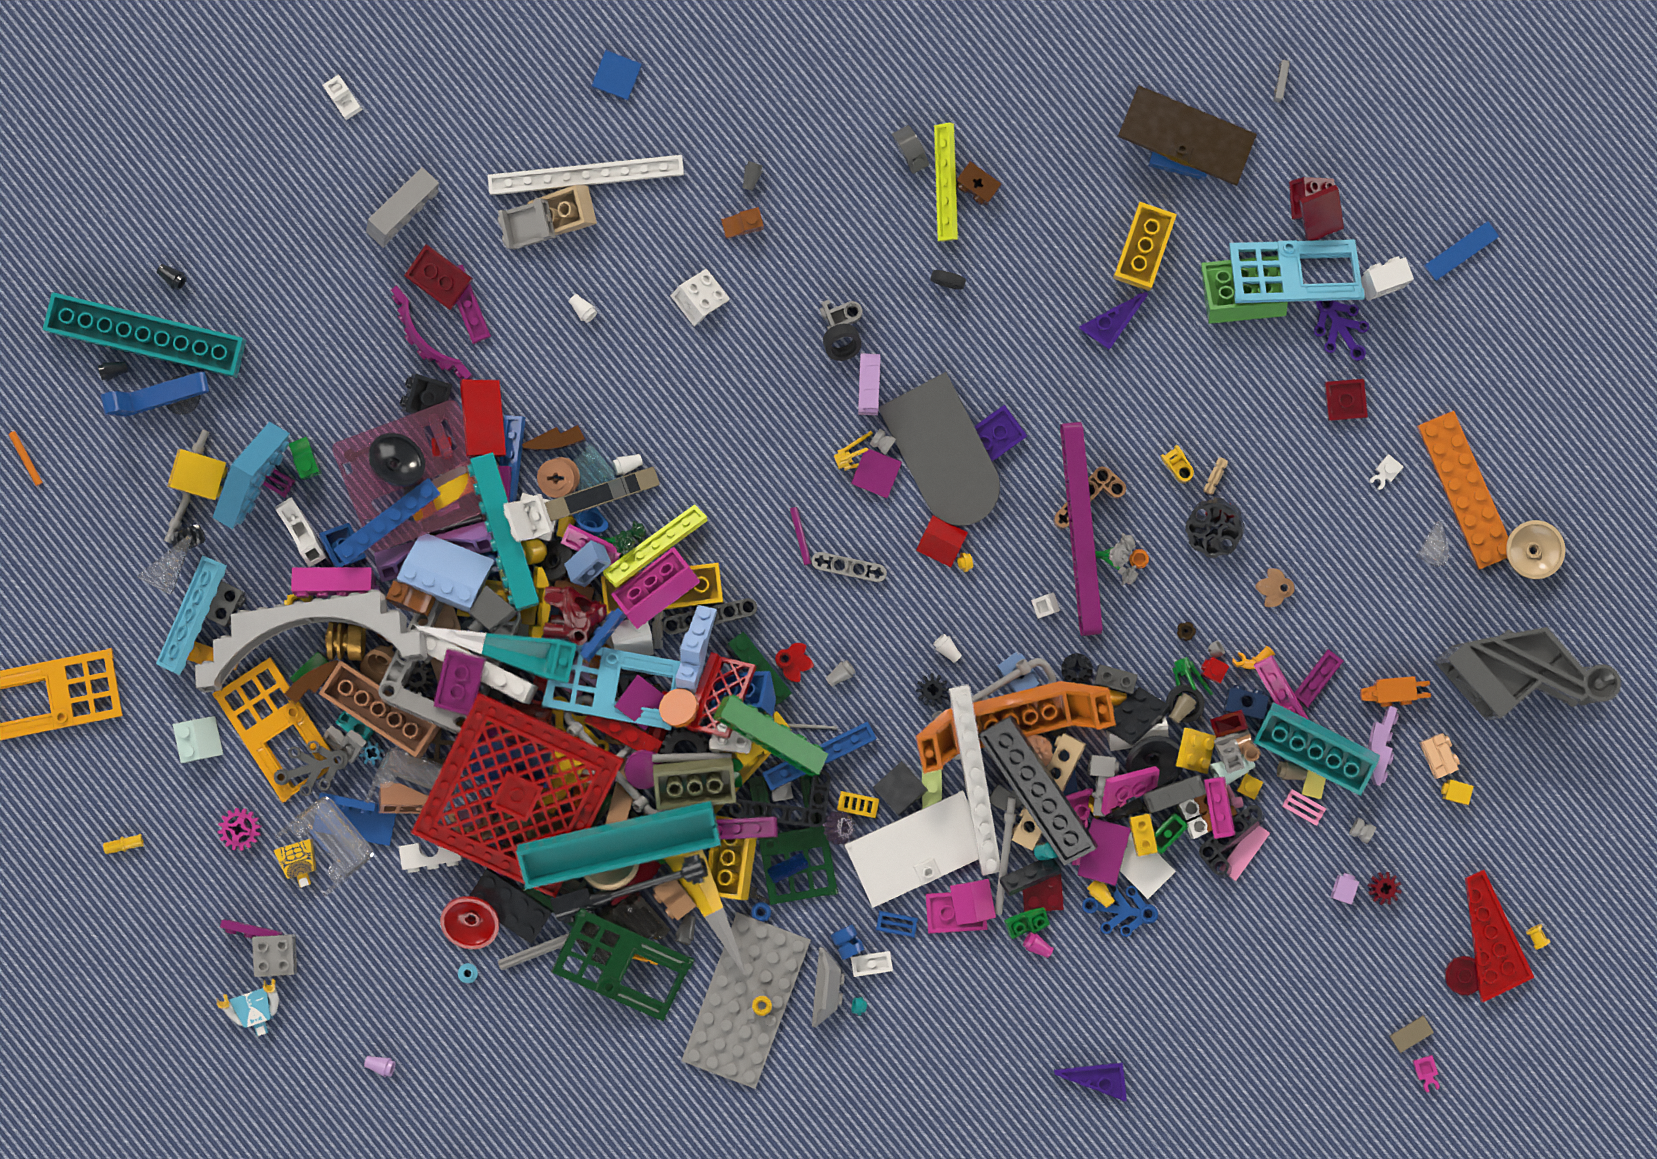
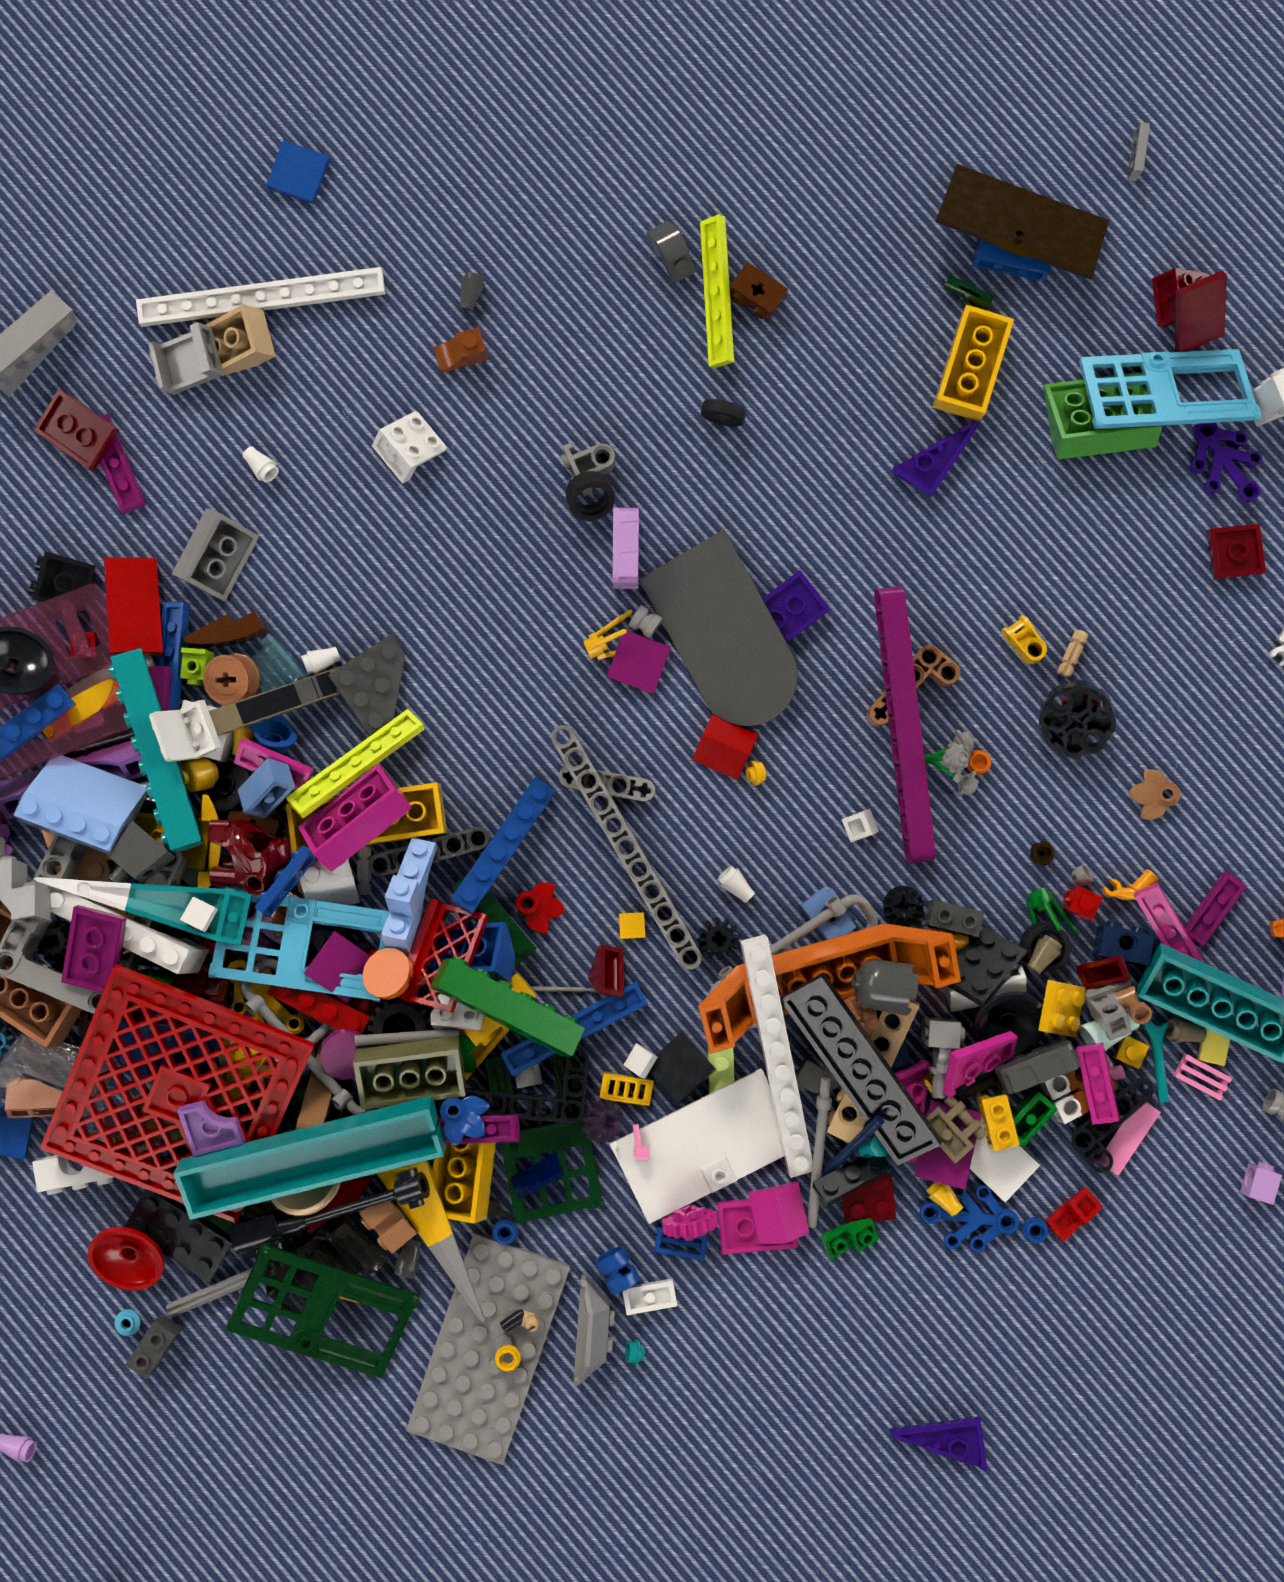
camera: 10 degrees right, 0 degrees up
(410, 599) = (35, 840): dark orange arch -> none
(425, 350) = (46, 507): magenta piece -> none
(489, 990) = (154, 1346): none -> dark grey brick
(536, 461) = (191, 656): none -> lime brick
(537, 658) = (199, 914): none -> white tile
(540, 823) = (207, 1130): none -> medium lavender tile
(546, 378) = (215, 554): none -> light grey slope
(624, 540) = (313, 758): dark green plant -> none
(667, 484) = (372, 683): none -> dark grey plate
(736, 821) = (467, 1120): none -> blue plate
(768, 612) = (503, 846): none -> blue plate
(773, 976) = (522, 1318): none -> arm
(800, 536) = (544, 745): magenta bar -> none
(842, 672) = (600, 920): light grey cone -> none
(846, 712) = (608, 971): none -> dark red slope
(864, 626) = (635, 856): none -> light grey beam
(865, 678) = (632, 925): none -> yellow tile
(867, 850) = (640, 1152): none -> bright pink hand
(869, 782) = (640, 1061): none -> white tile
(904, 905) = (690, 1222): none -> dark pink gear
(1031, 849) = (853, 1145): none -> dark blue bar
(1037, 945) = (862, 1266): dark pink cone -> none
(1057, 726) = (886, 986): none -> dark grey cylinder
(1107, 847) = (954, 1141): none -> dark tan plate
(1132, 181) = (968, 292): none -> dark green pin
(1174, 926) = (1042, 1233): none -> blue plate
(1200, 909) = (1072, 1213): none -> red slope
(1269, 774) = (1156, 1036): none -> teal piece

